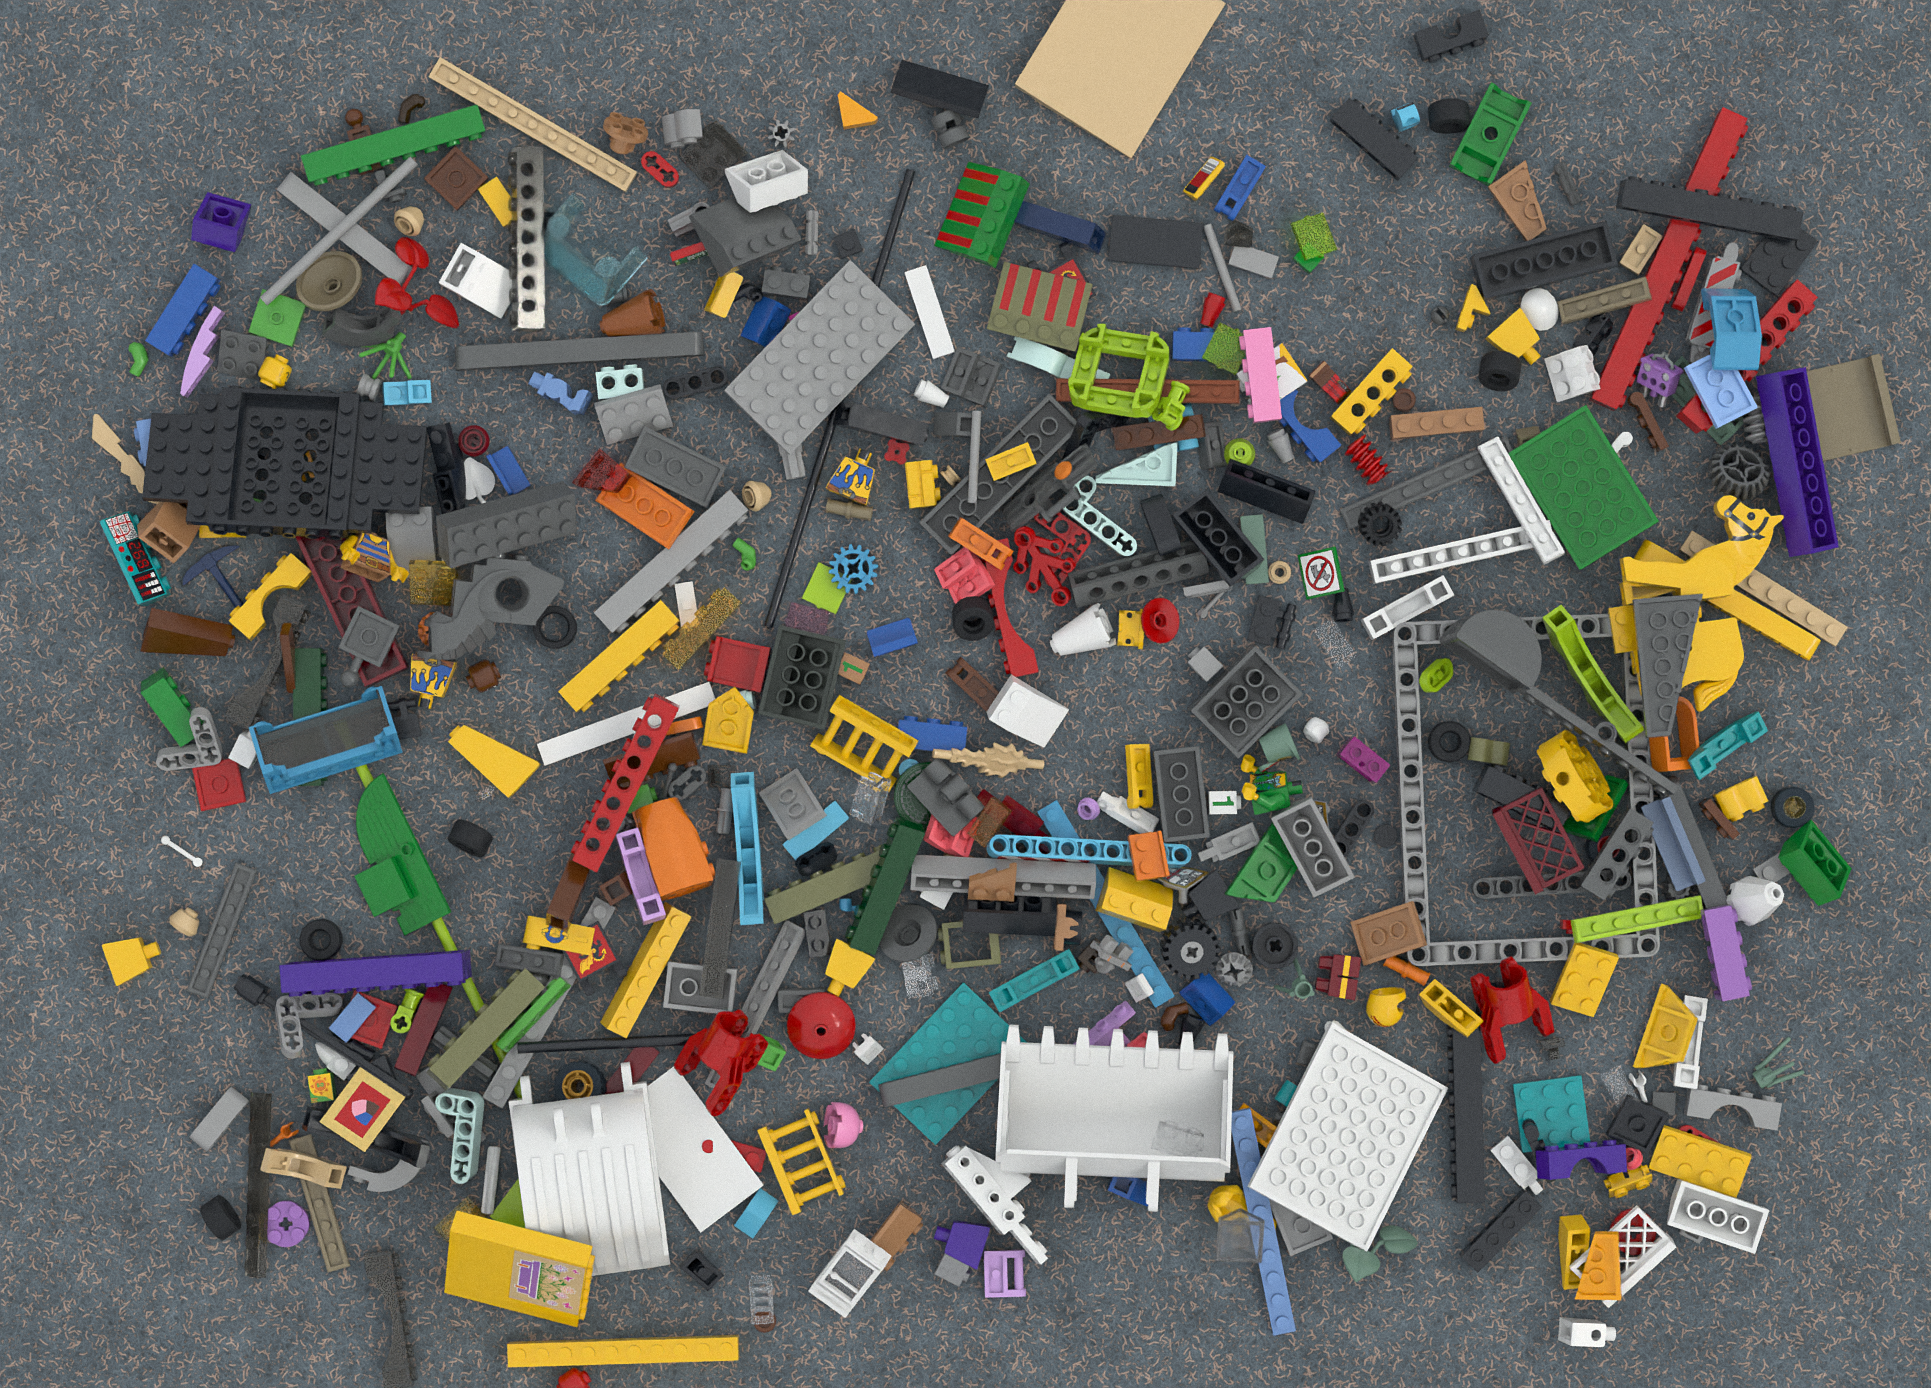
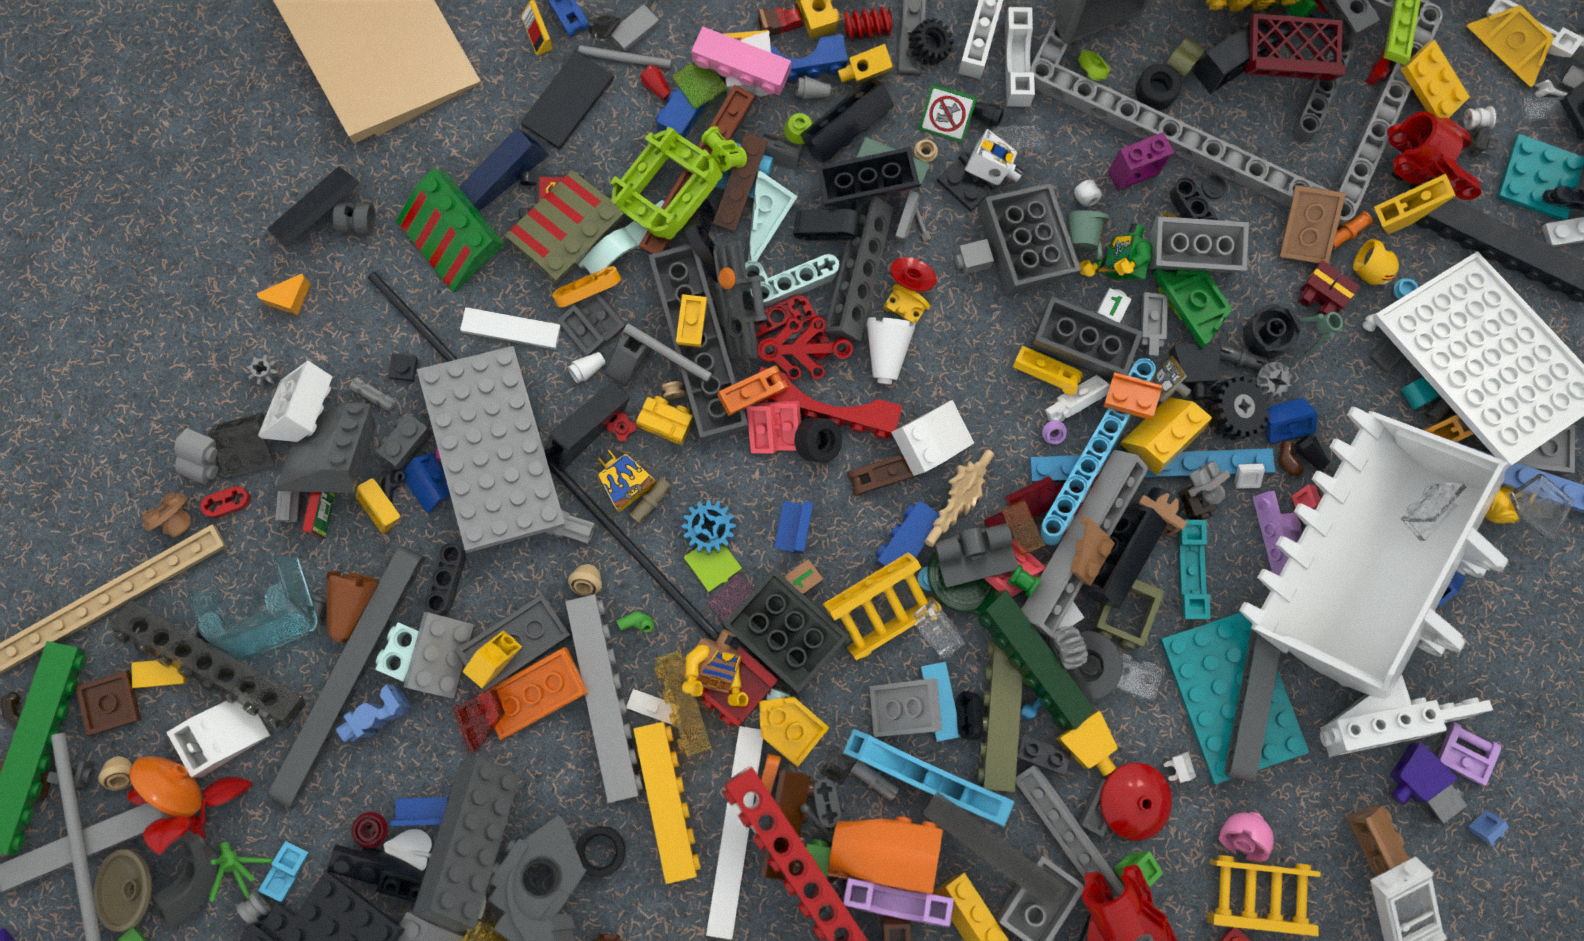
camera: 65 degrees left, 10 degrees down
(423, 268) = (166, 785): none -> orange dish
(653, 460) = (491, 659): none -> yellow slope
(741, 636) = (714, 667): none -> torso
(910, 908) = (1069, 647): none -> light grey gear
(943, 844) = (1024, 580): none -> green bush
(953, 1315) = (1488, 827): none -> medium blue tile
(986, 347) = (586, 286): none -> light orange beam
(1298, 634) = (993, 160): none -> white torso
(1331, 488) = (875, 59): none -> yellow torso
(1380, 1041) = (1404, 287): none -> medium azure plate
(1576, 1034) = (1479, 117): none -> white bush

